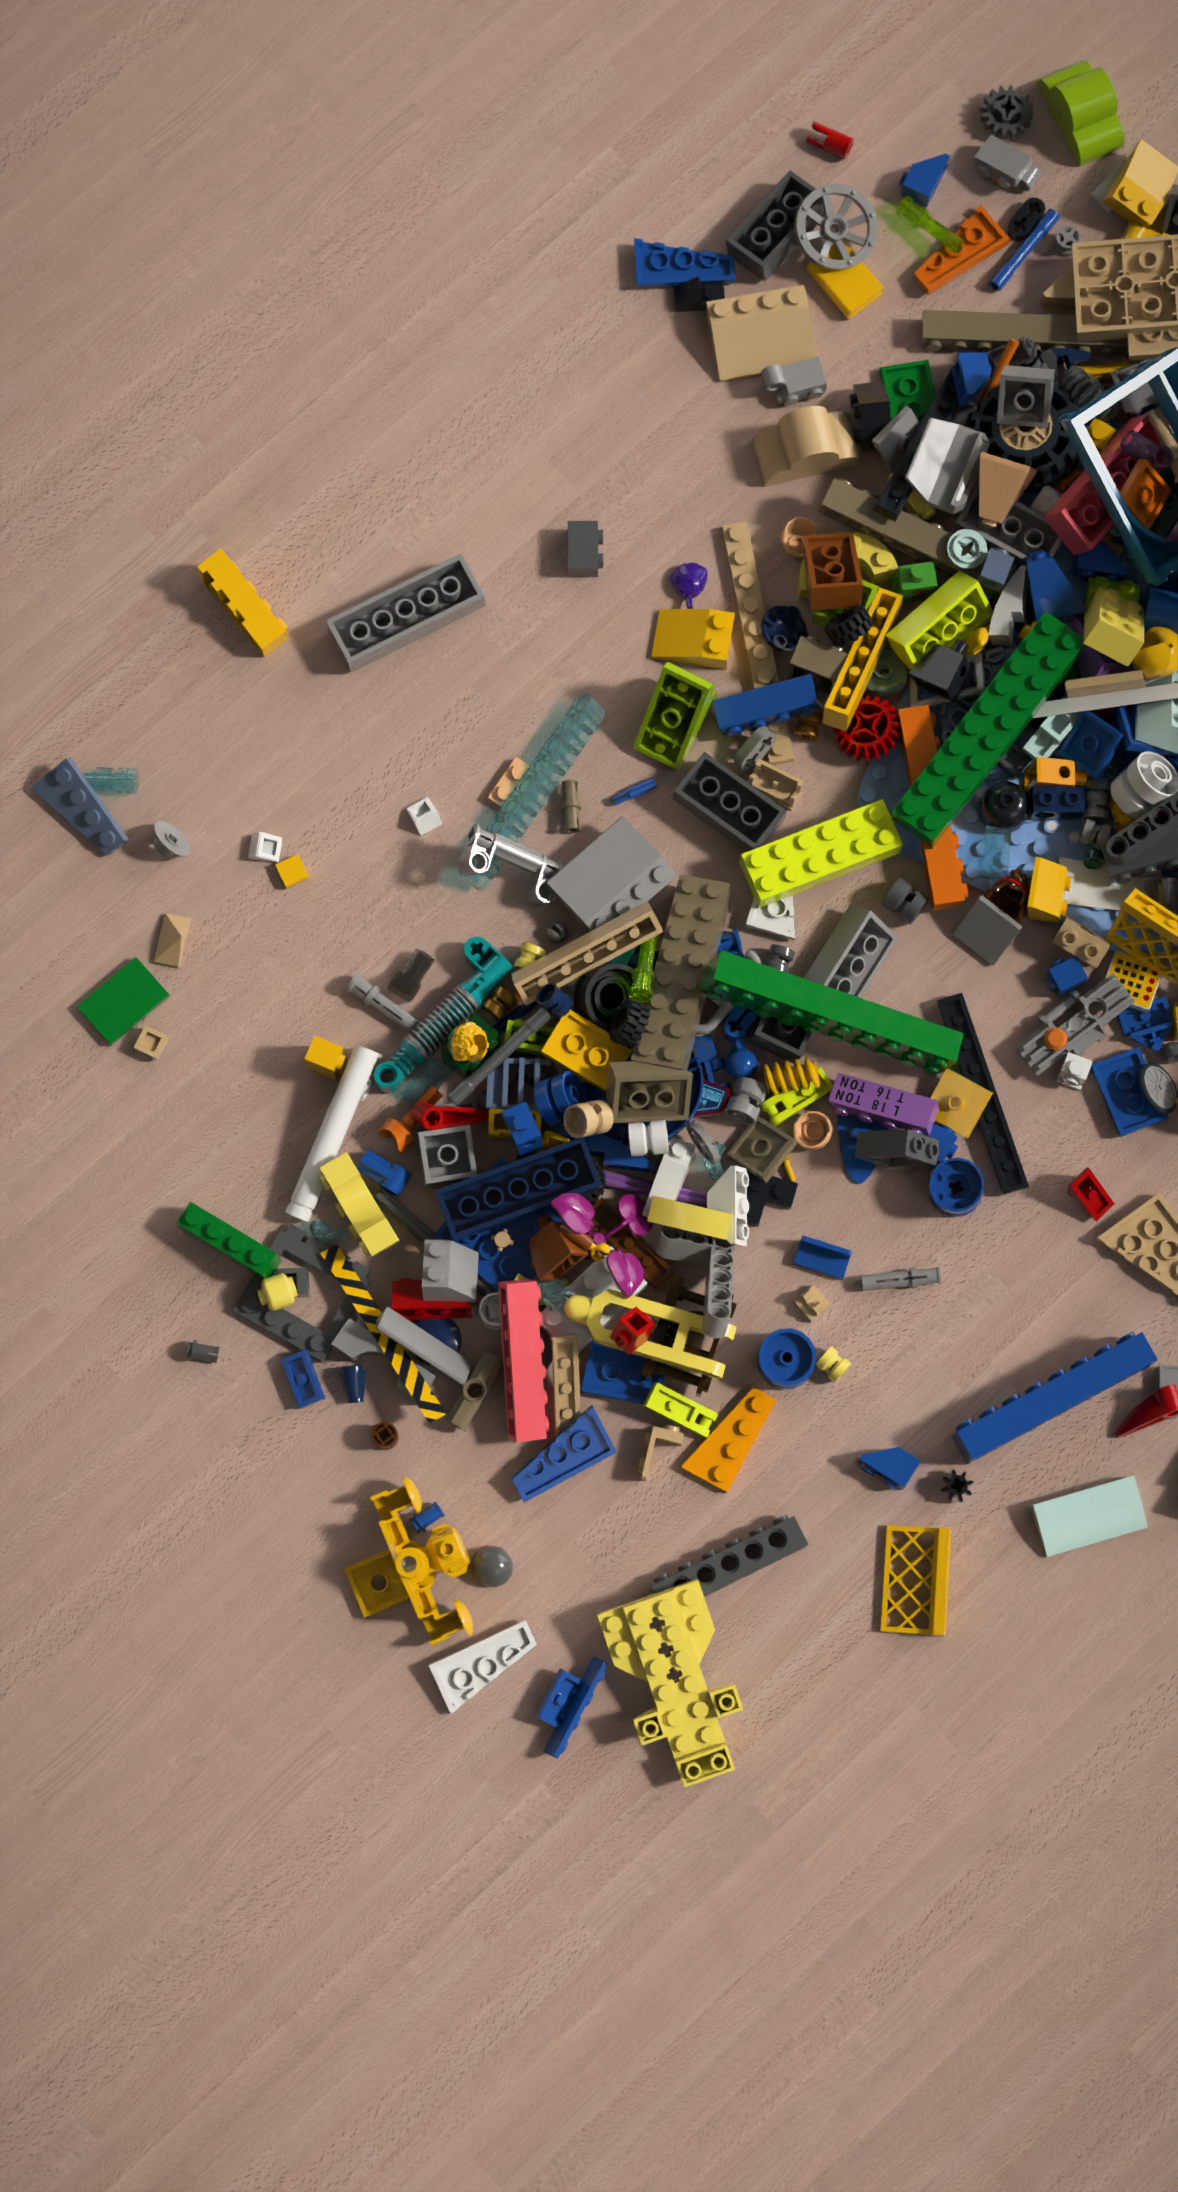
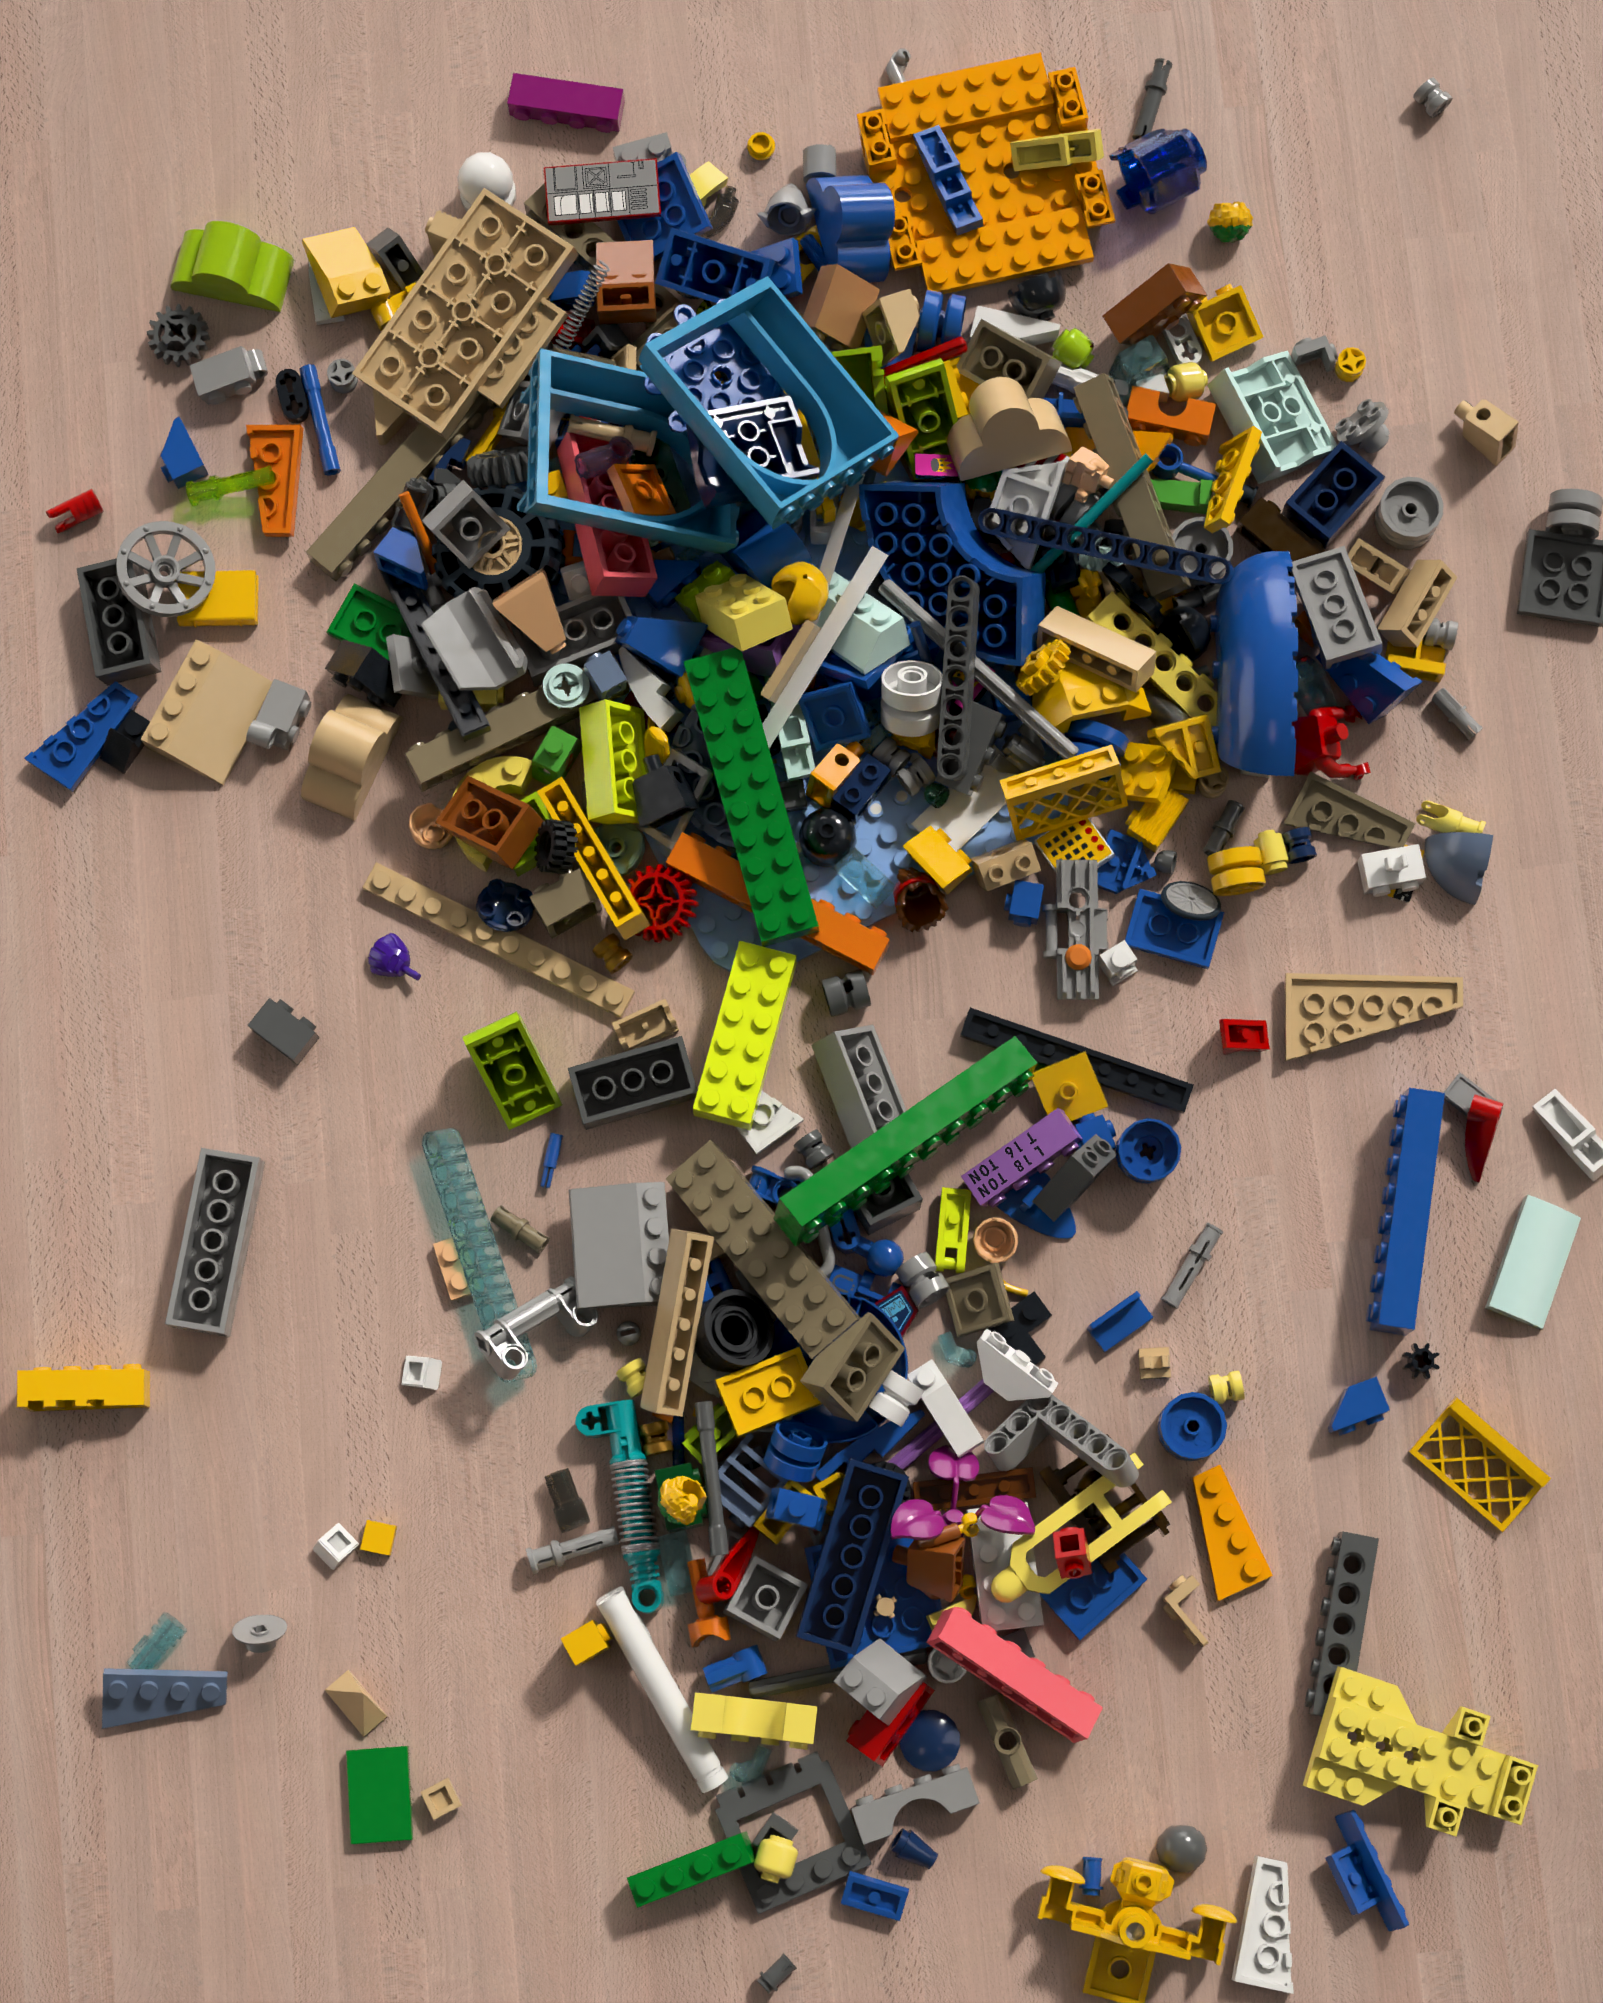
camera: 50 degrees left, 0 degrees up
(388, 1438) = (983, 1854): reddish brown wheel -> none
(394, 1351) = (890, 1787): sticker -> none
(424, 1345) = (930, 1757): light grey slope -> none
(554, 1293) = (974, 1596): clear light blue slope -> none
(556, 1002) = (700, 1386): dark blue wheel -> none
(565, 1380) = (1068, 1651): tan tile -> none
(568, 1454) = (1130, 1696): blue wing -> none
(588, 1119) = (838, 1441): tan wheel -> none
(629, 1022) = (775, 1333): black tyre -> none
(643, 975) = (738, 1285): clear neon green pin -> none
(679, 1409) = (1165, 1561): neon yellow plate -> none
(689, 1217) = (998, 1416): light yellow slope -> none
(694, 637) = (447, 993): yellow slope -> none
(703, 1142) = (935, 1349): light grey wheel -> none
(754, 748) = (598, 1019): light grey beam -> none
(767, 705) = (567, 977): blue brick -> none
(791, 1076) = (933, 1221): yellow piece -> none
(987, 930) = (931, 940): light grey tile -> none

